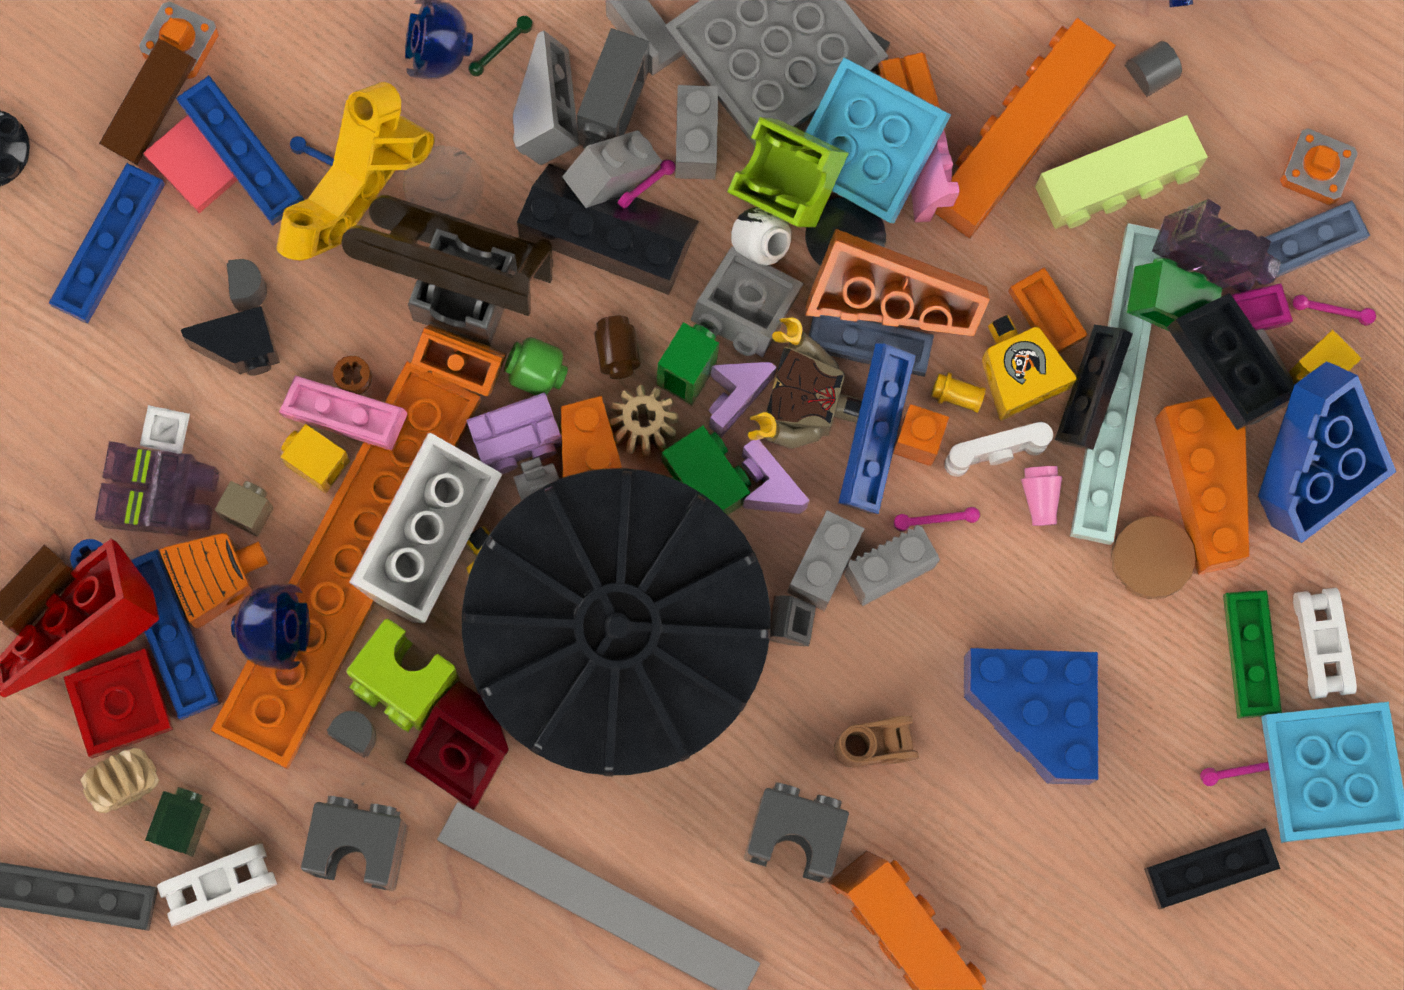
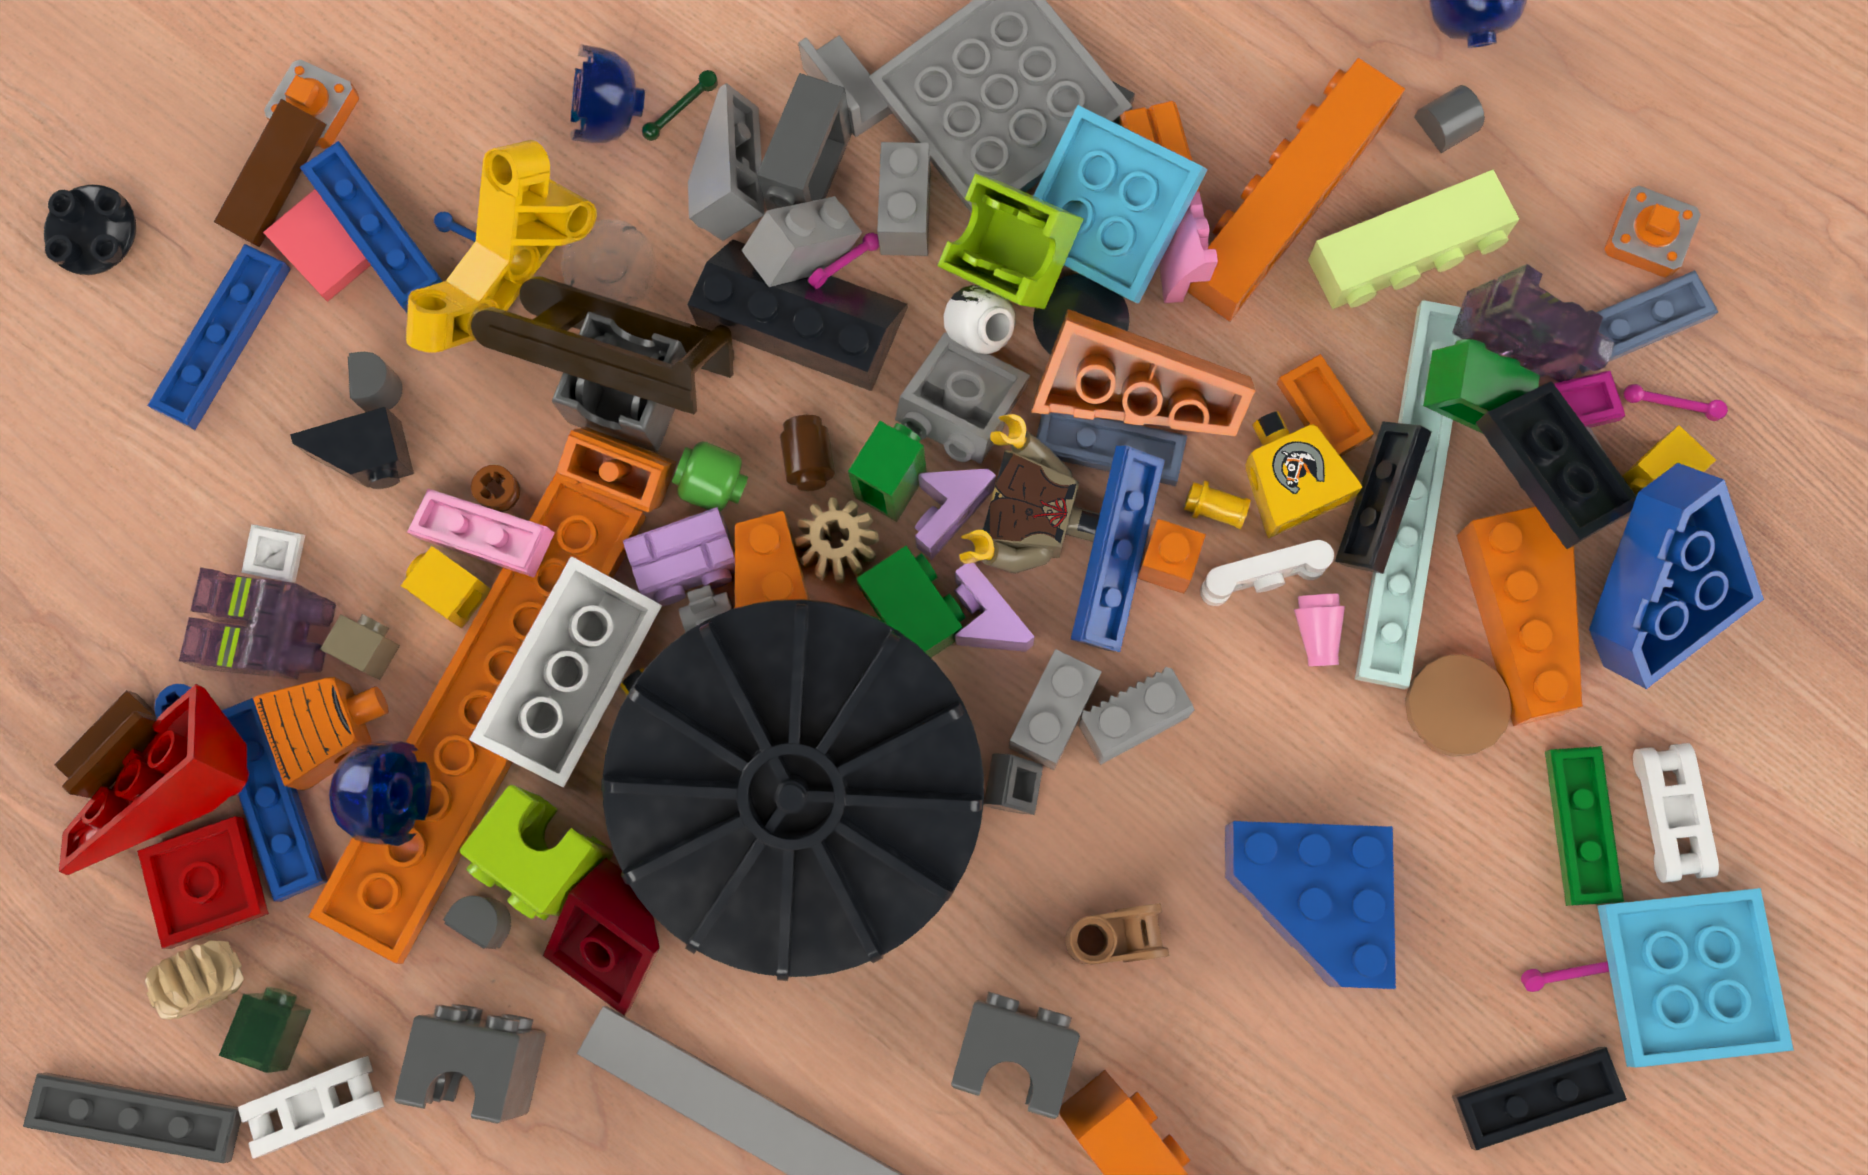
camera: 15 degrees right, 0 degrees up
(903, 522) = (1149, 661): dark pink hinge -> none

